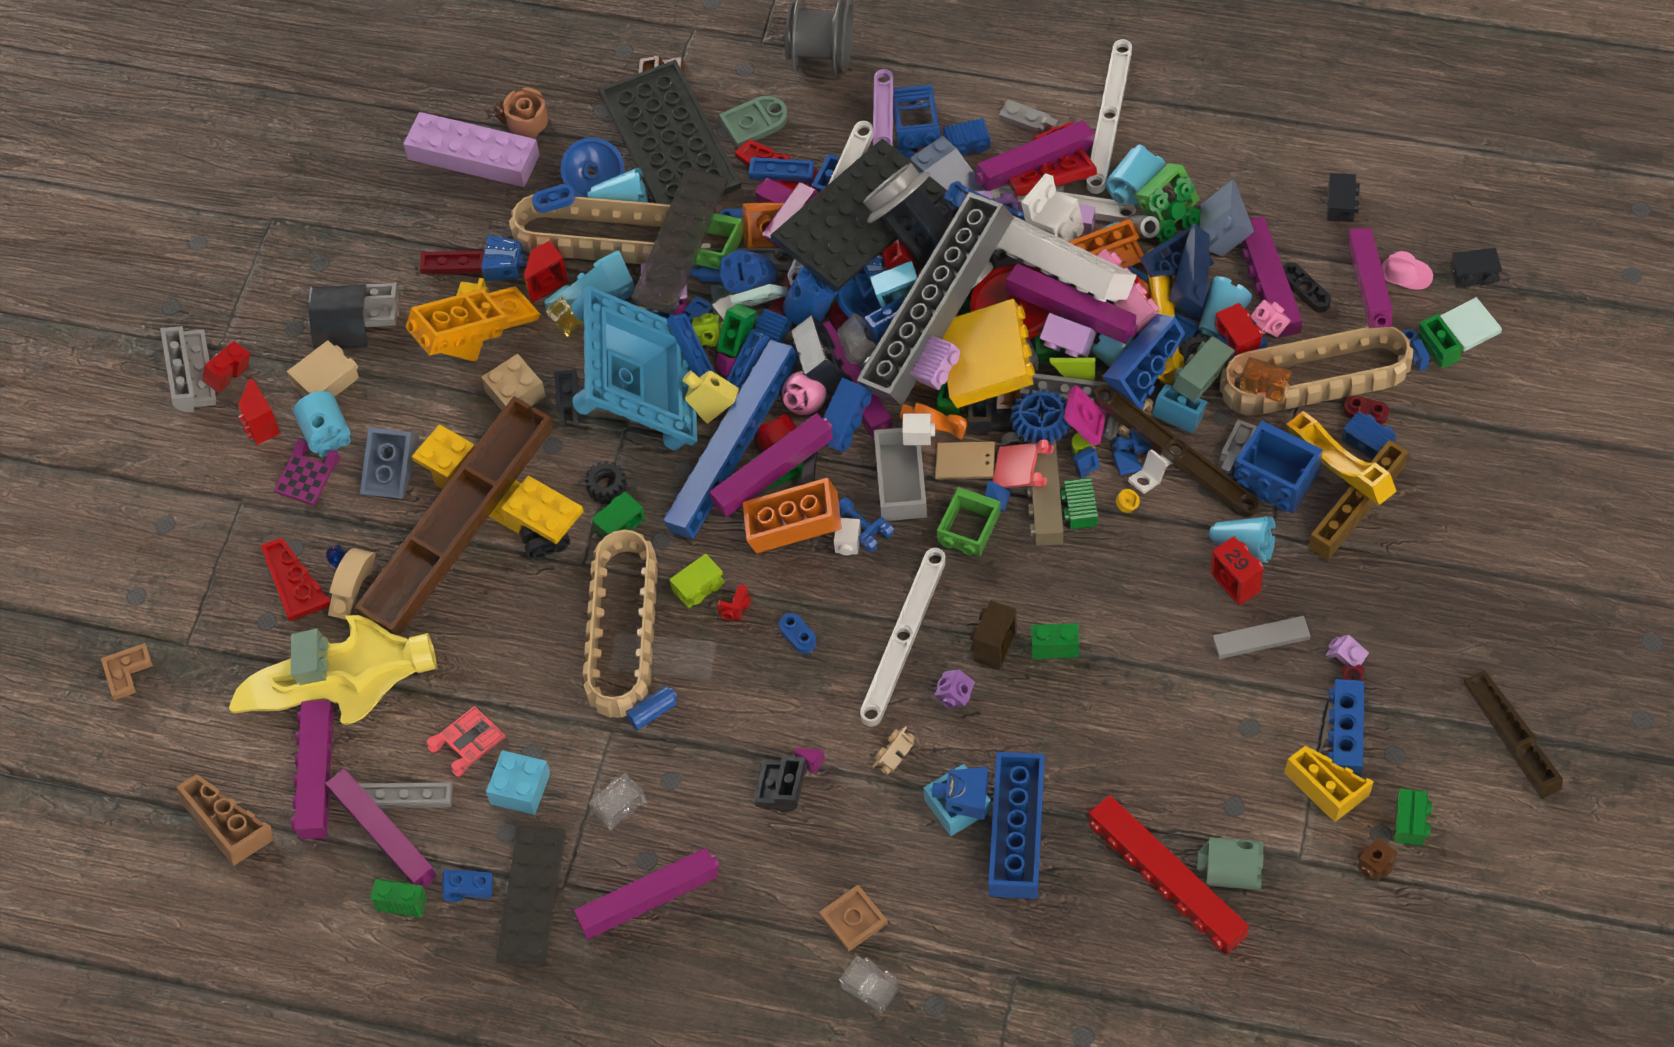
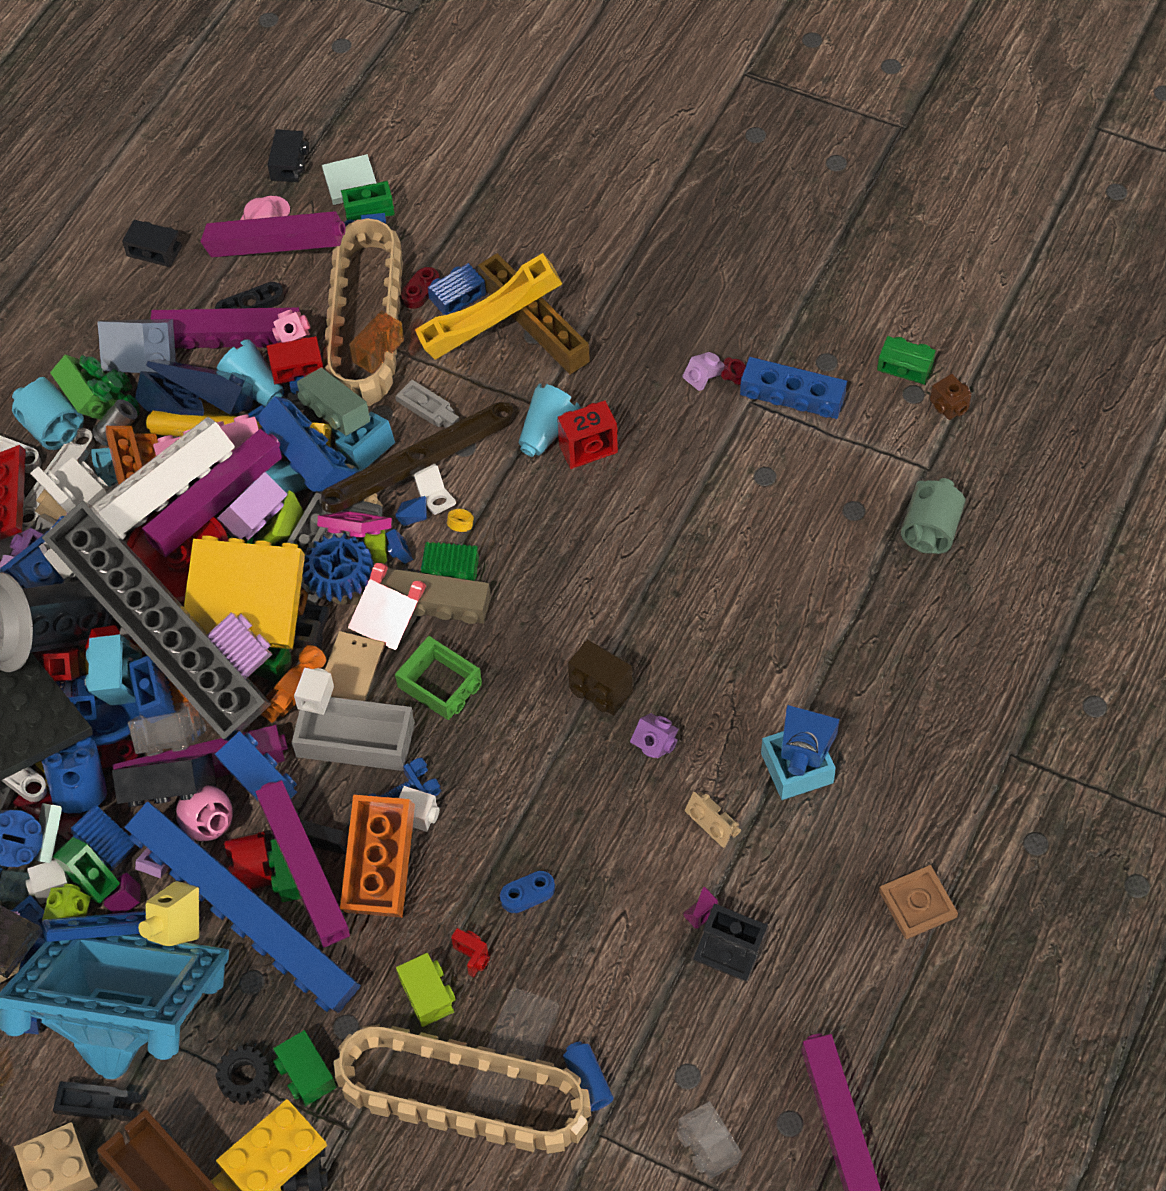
camera: 80 degrees left, 0 degrees up
(747, 358) = (132, 865): blue tile -> none
(869, 984) = (1005, 900): clear brick -> none
(898, 650) = (582, 787): white beam -> none
(998, 493) = (407, 645): blue slope -> none
(1011, 439) = (345, 612): dark grey tile -> none
(1016, 825) = (867, 711): blue brick -> none
(1055, 641) = (619, 624): green brick -> none
(1138, 445) = (391, 494): blue plate -> none
(1168, 875) = (925, 583): red brick -> none
(1261, 637) = (663, 439): light grey tile -> none
(1277, 467) = (473, 369): blue container -> none
(1327, 784) = (856, 417): yellow wedge -> none
(1515, 735) = (830, 259): dark brown slope -> none

